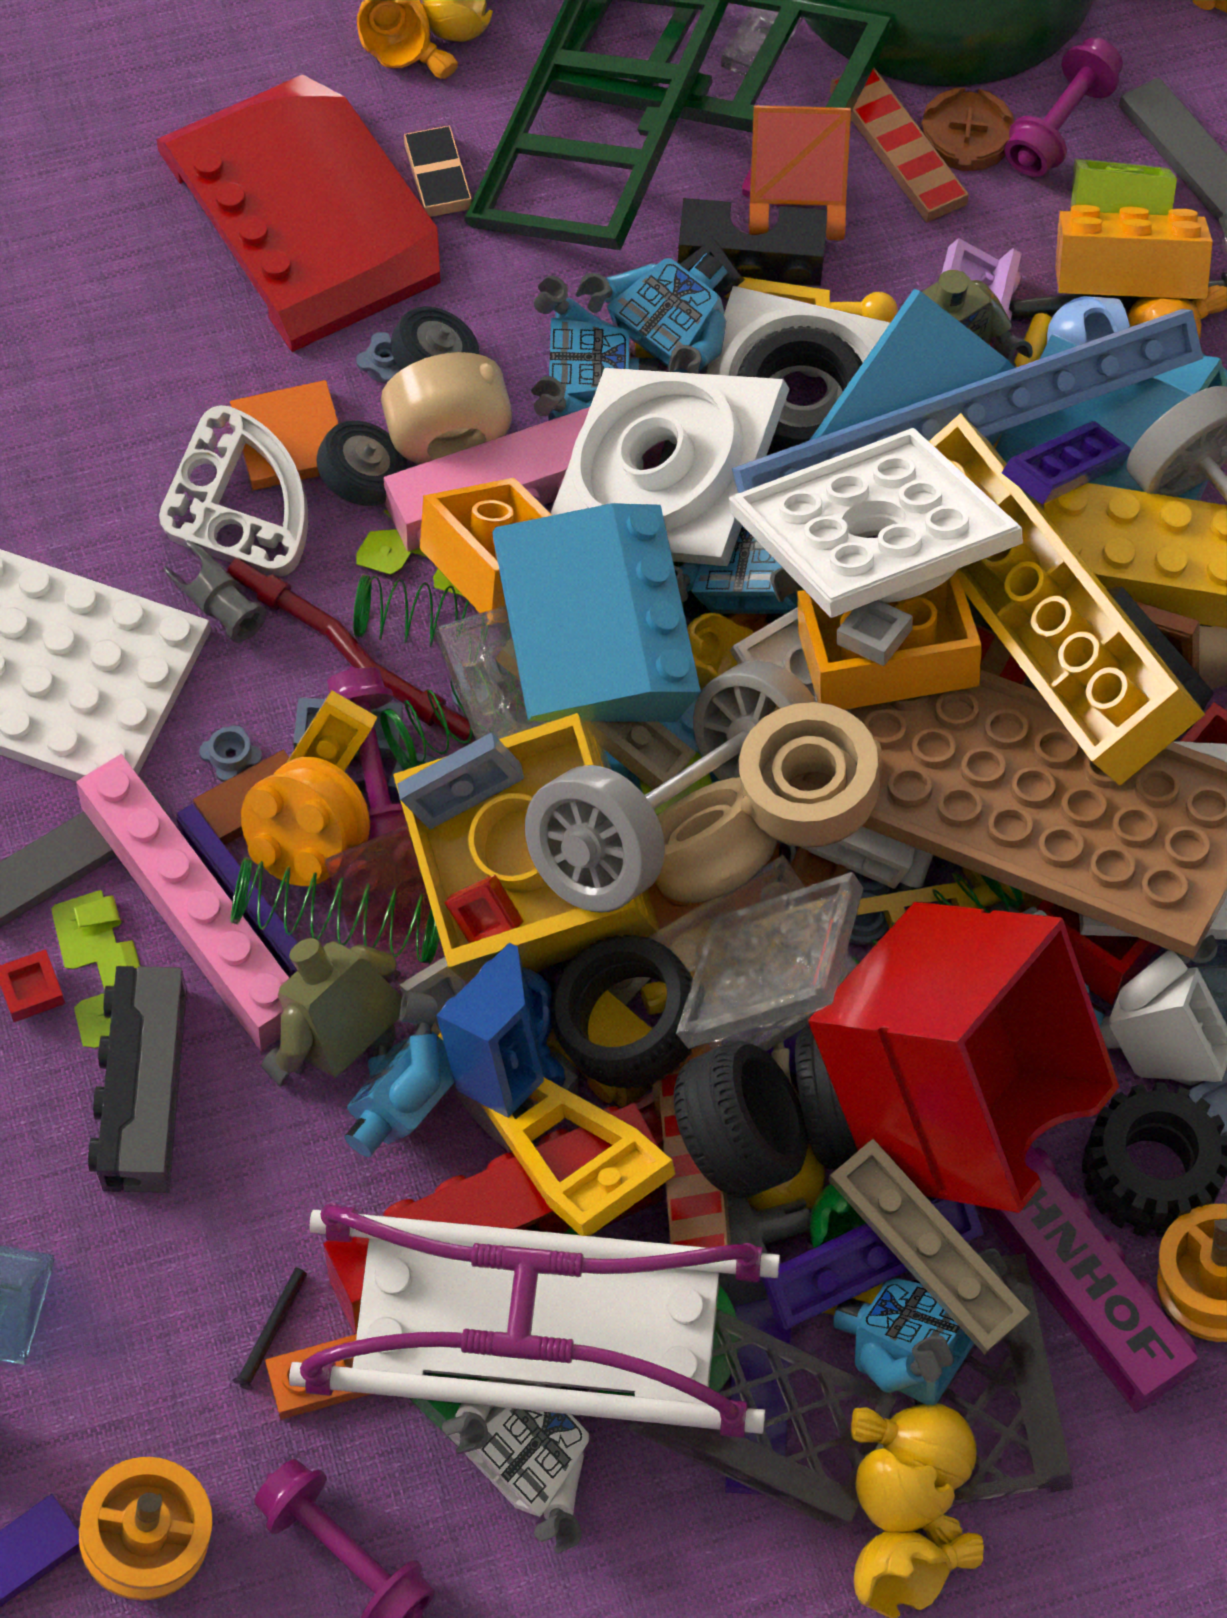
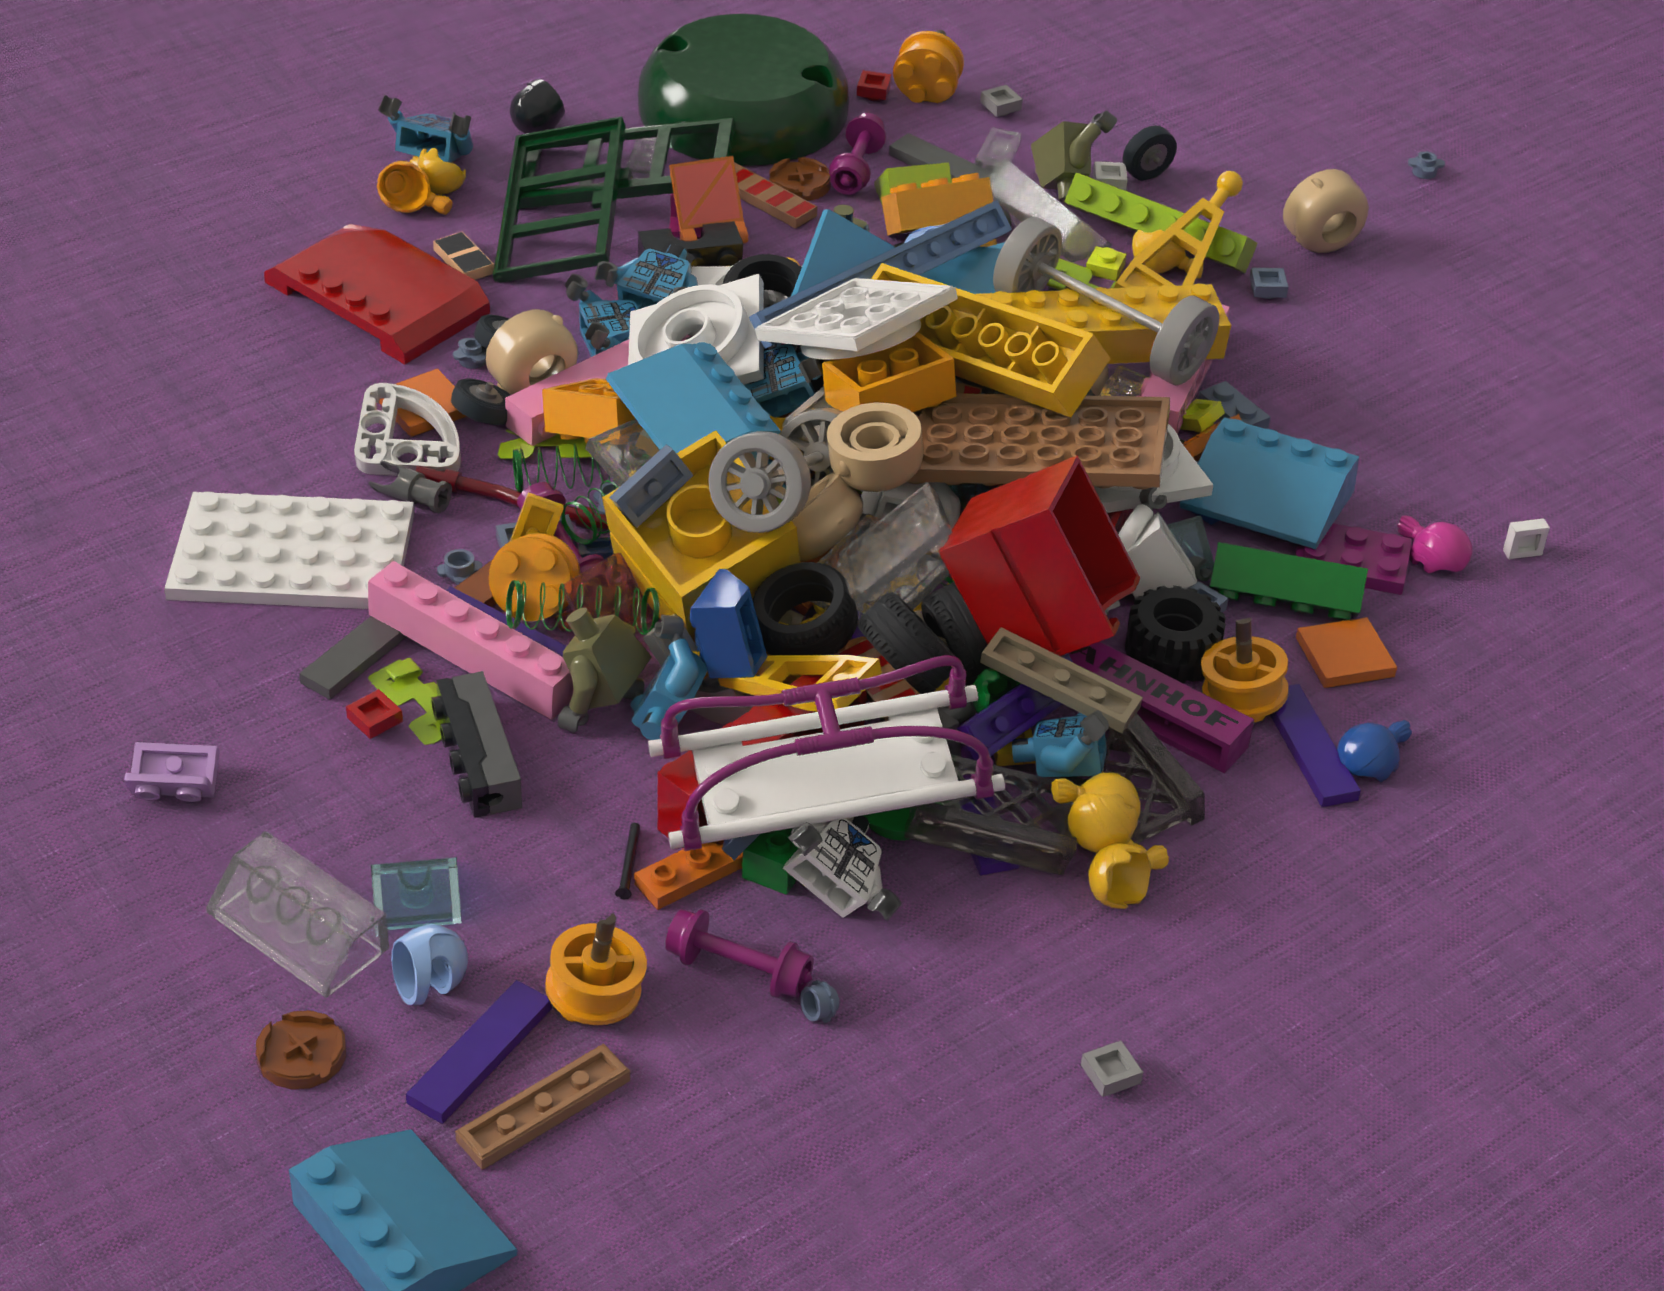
camera: 20 degrees left, 20 degrees down
(483, 909) = (691, 559): red tile -> none
(875, 631) = (884, 360): light grey plate -> none
(1066, 462) = (956, 279): dark purple tile -> none

